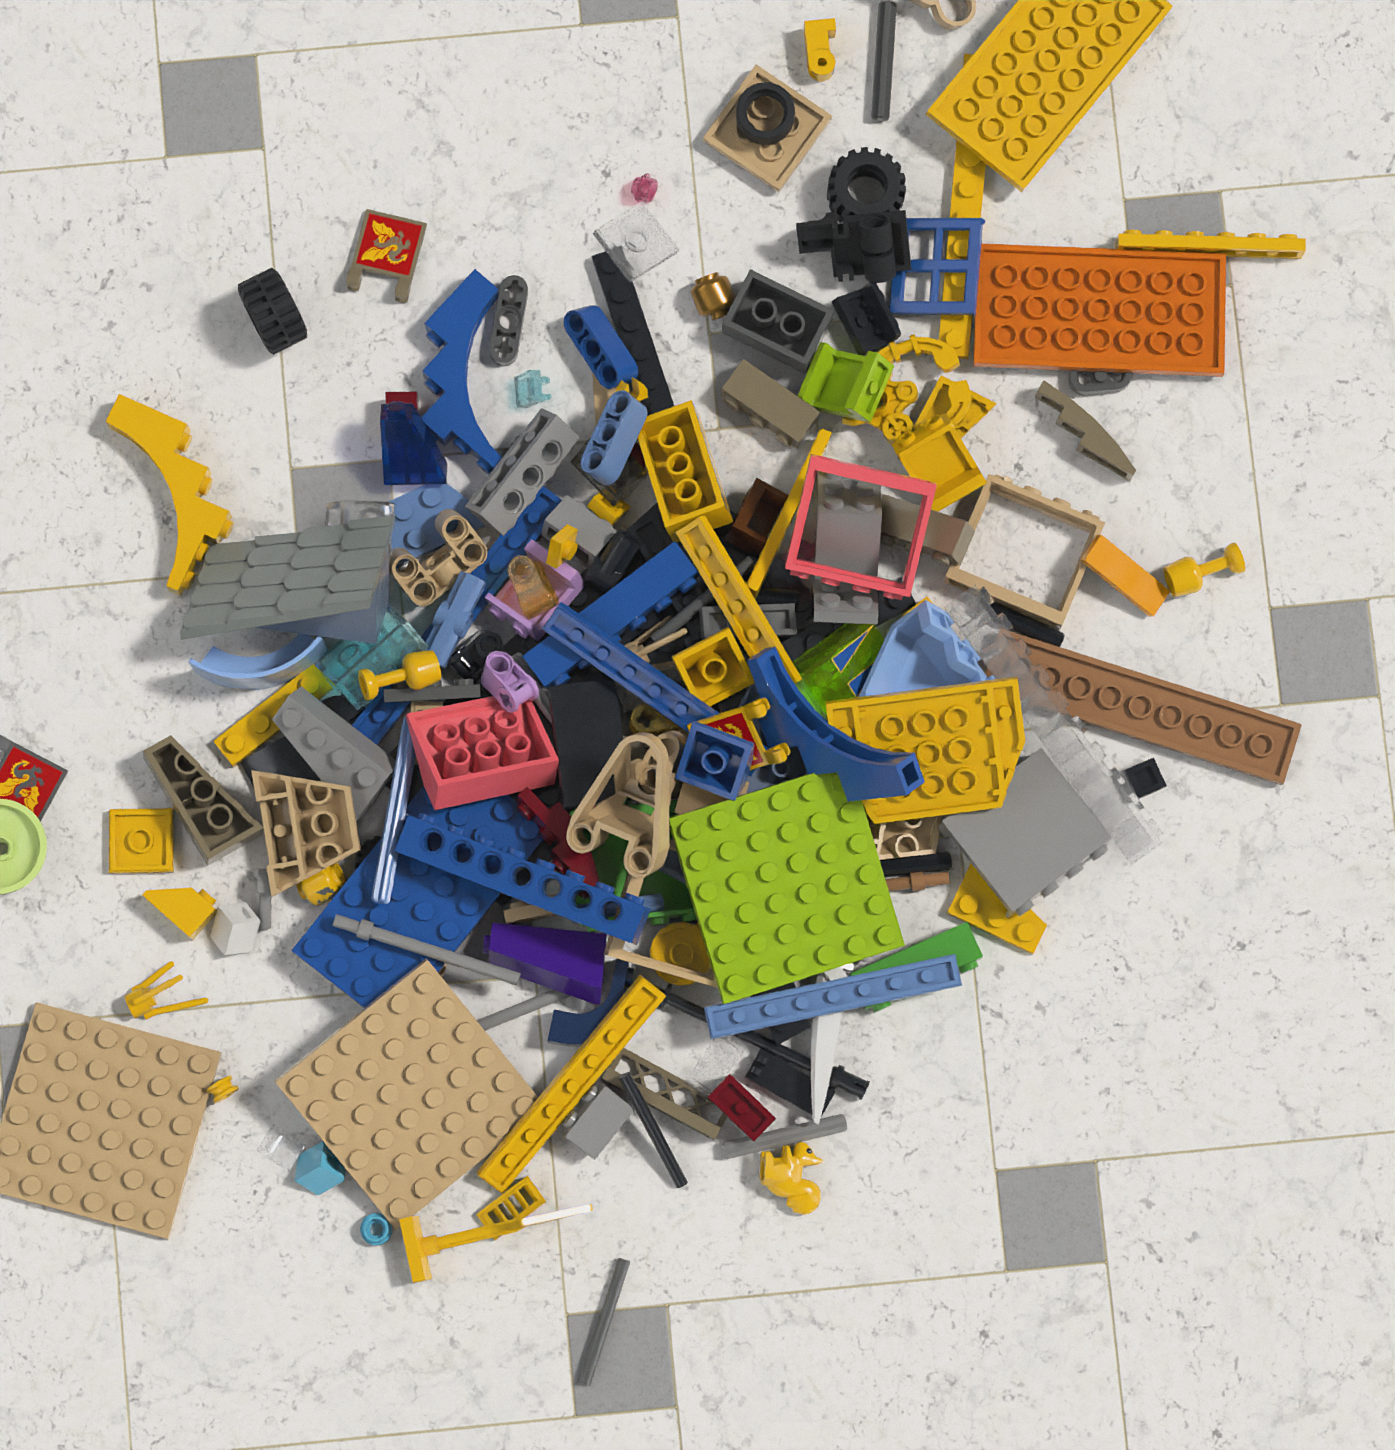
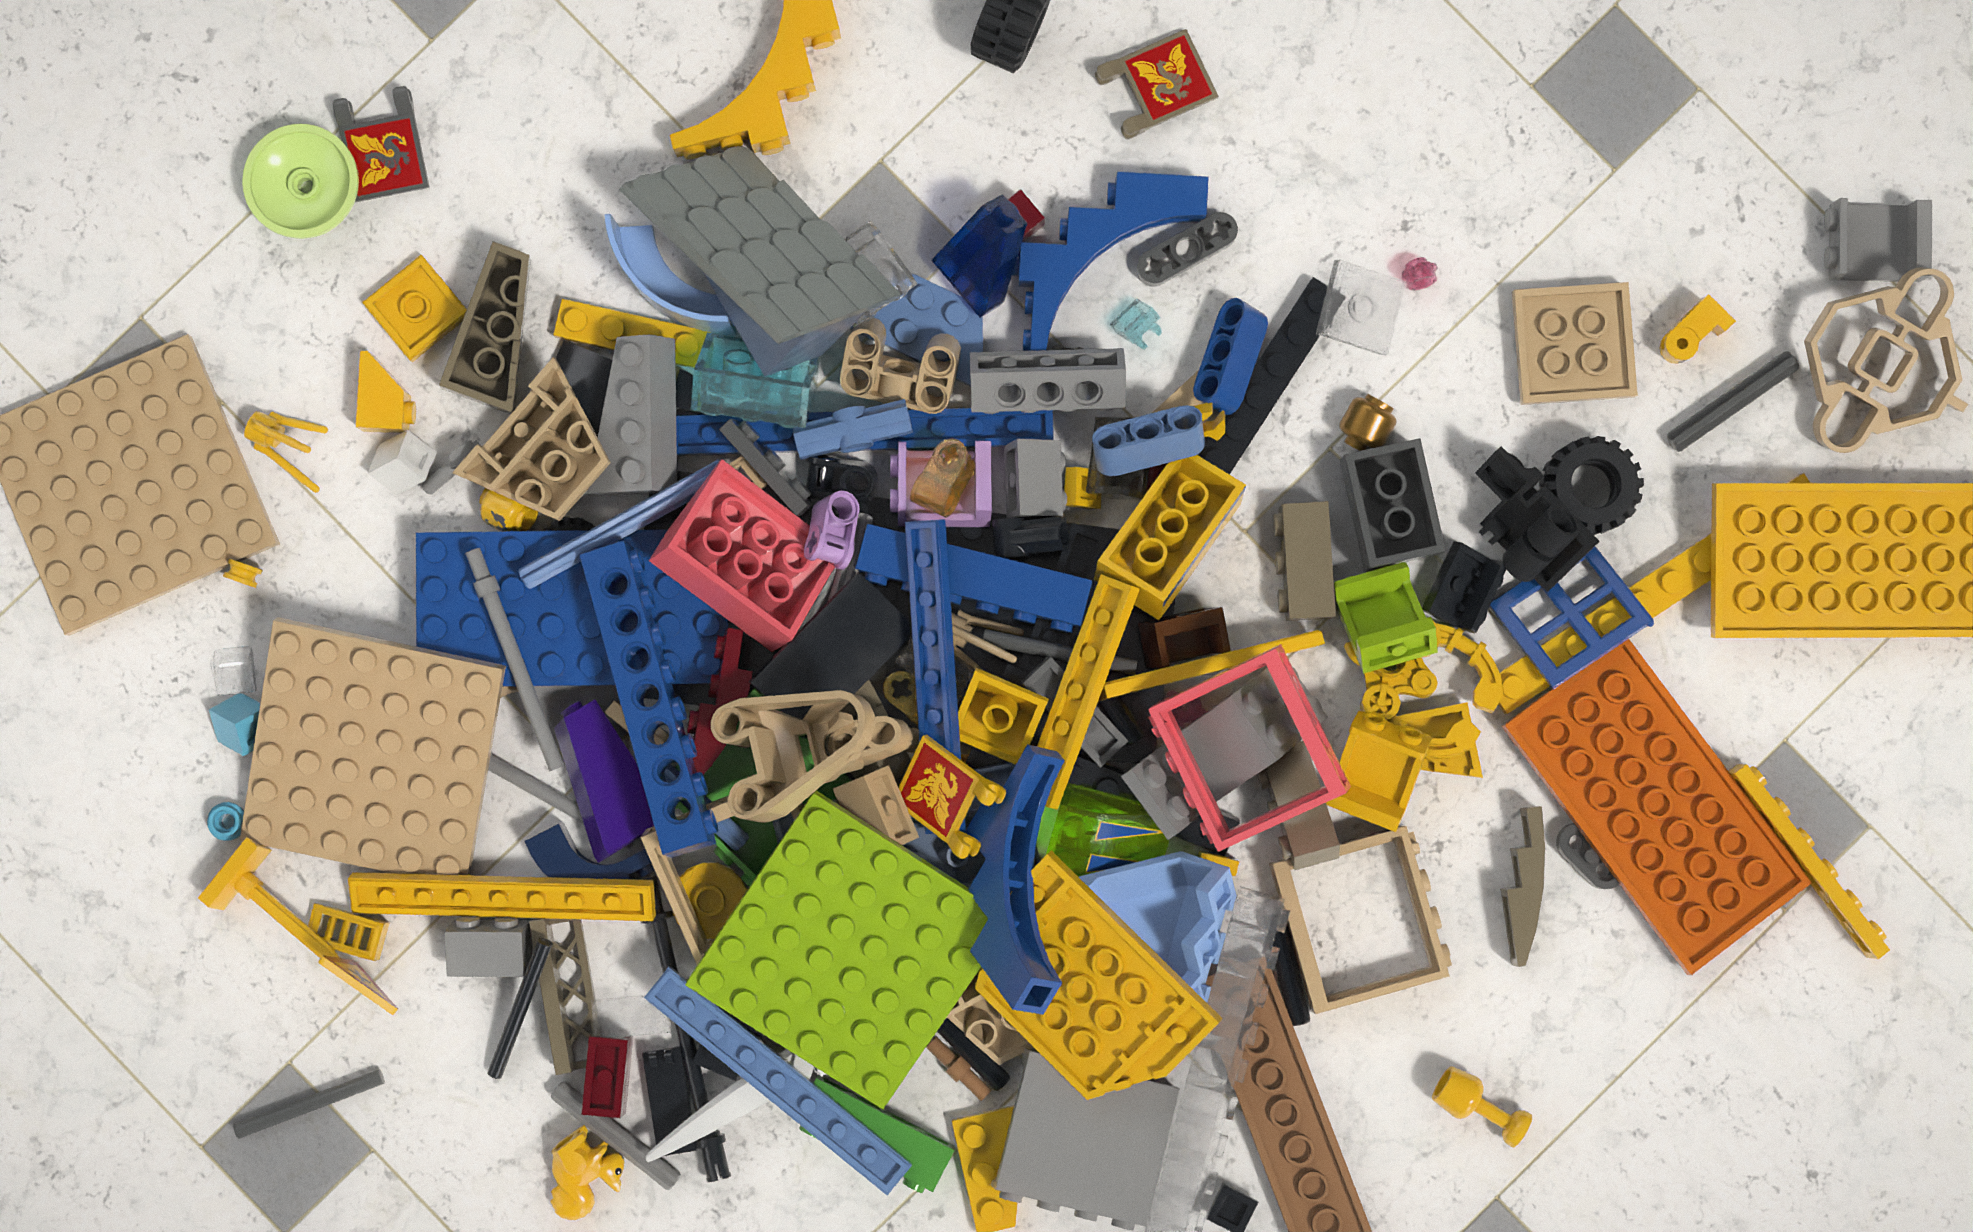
camera: 55 degrees right, 5 degrees up
(418, 670) = (771, 438): yellow piece -> none
(562, 546) = (1003, 476): yellow plate -> none
(715, 761) = (904, 793): blue slope -> none
(762, 90) = (1586, 359): black tyre -> none
(1125, 575) = (1413, 1035): light orange tile -> none

